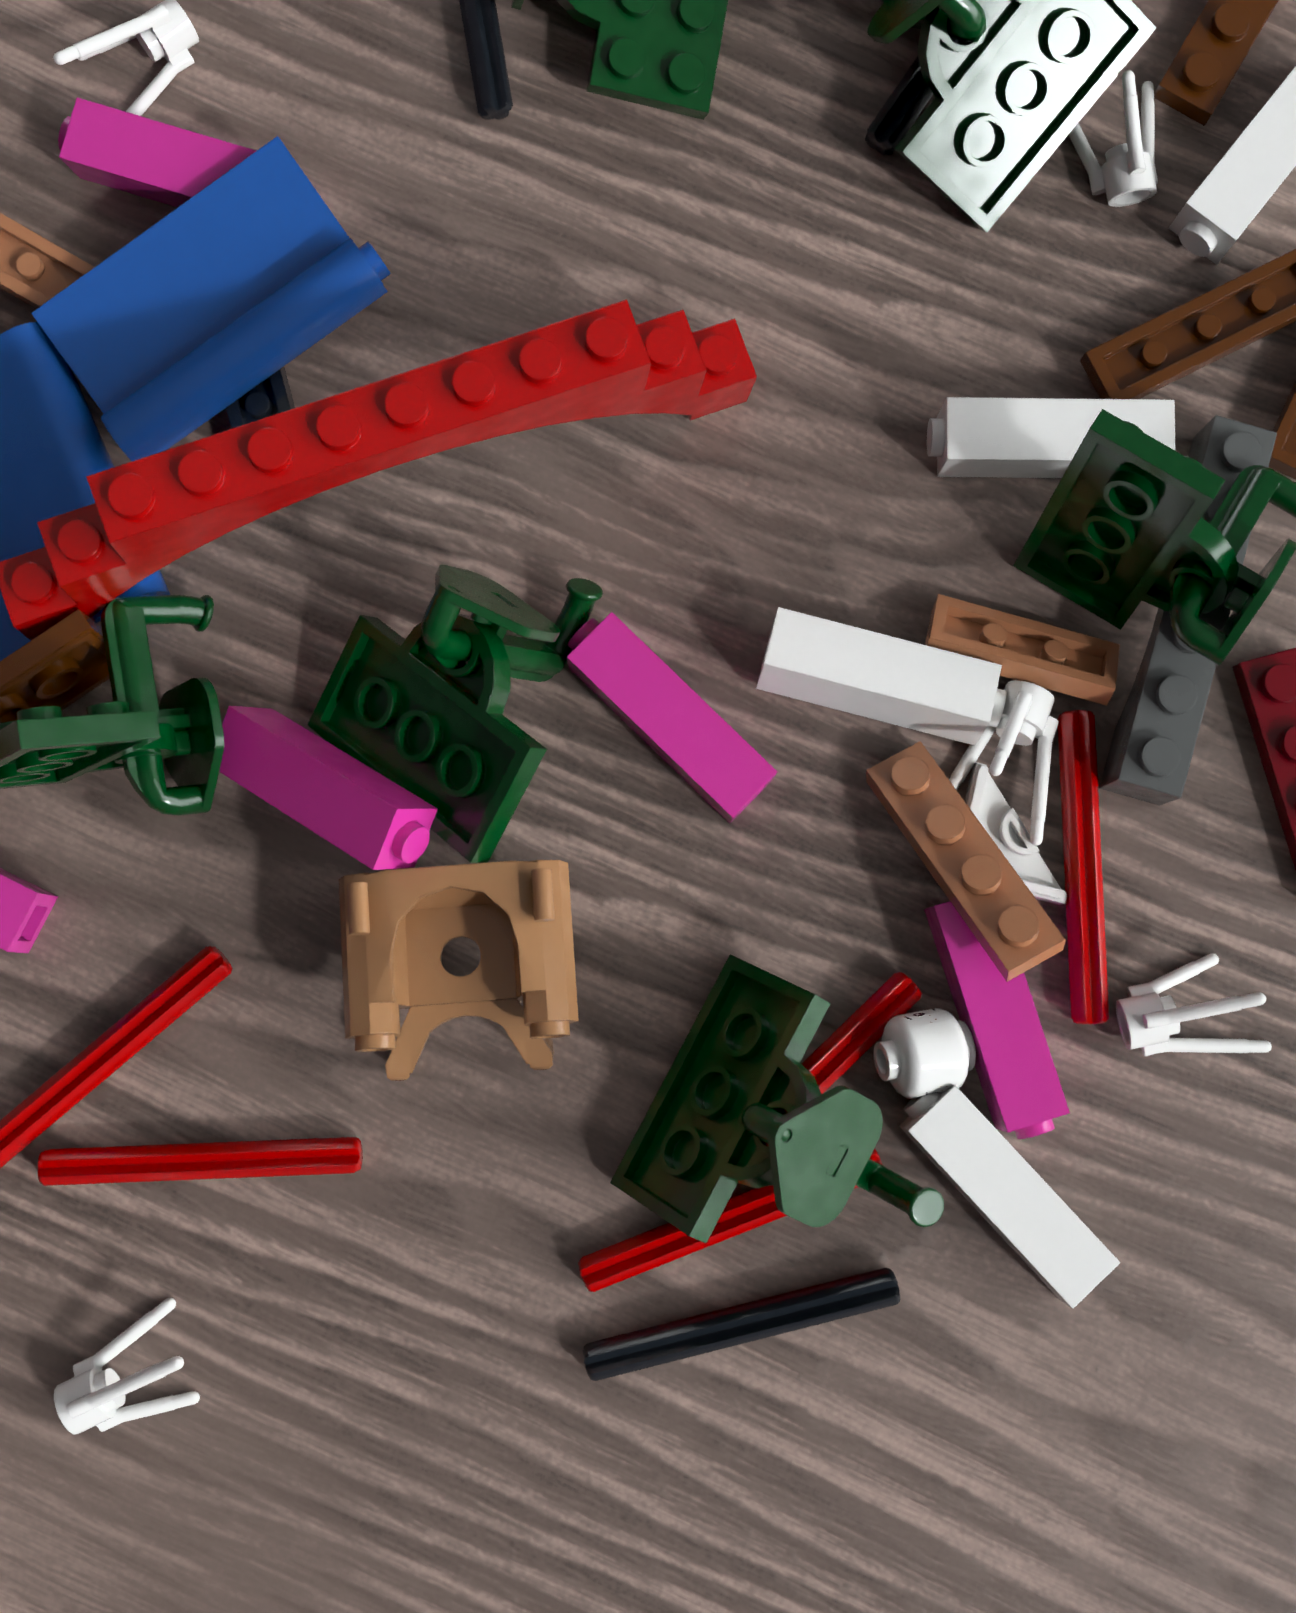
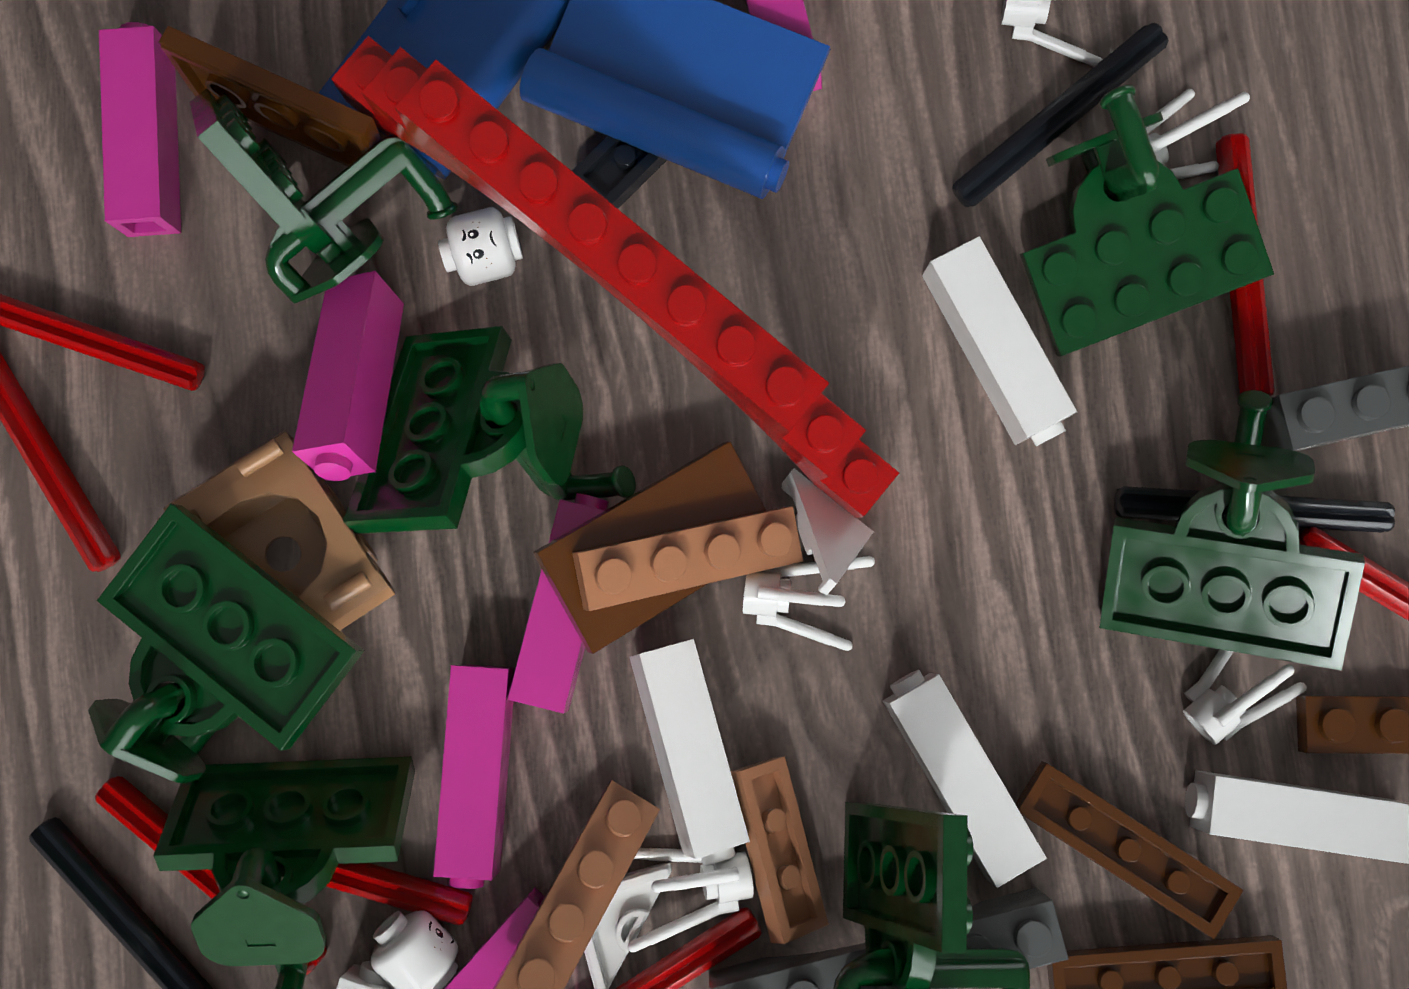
camera: 65 degrees right, 0 degrees up
(262, 596) = (480, 246): none -> white head
(521, 1037) = (226, 642): none -> dark green plate
(662, 160) = (999, 343): none -> white brick
(668, 591) = (692, 495): none -> reddish brown tile
(697, 566) = (686, 557): none -> nougat plate
(743, 427) = (825, 529): none -> white tile
(774, 518) = (768, 594): none -> white plant
(784, 896) = (474, 775): none -> dark pink brick

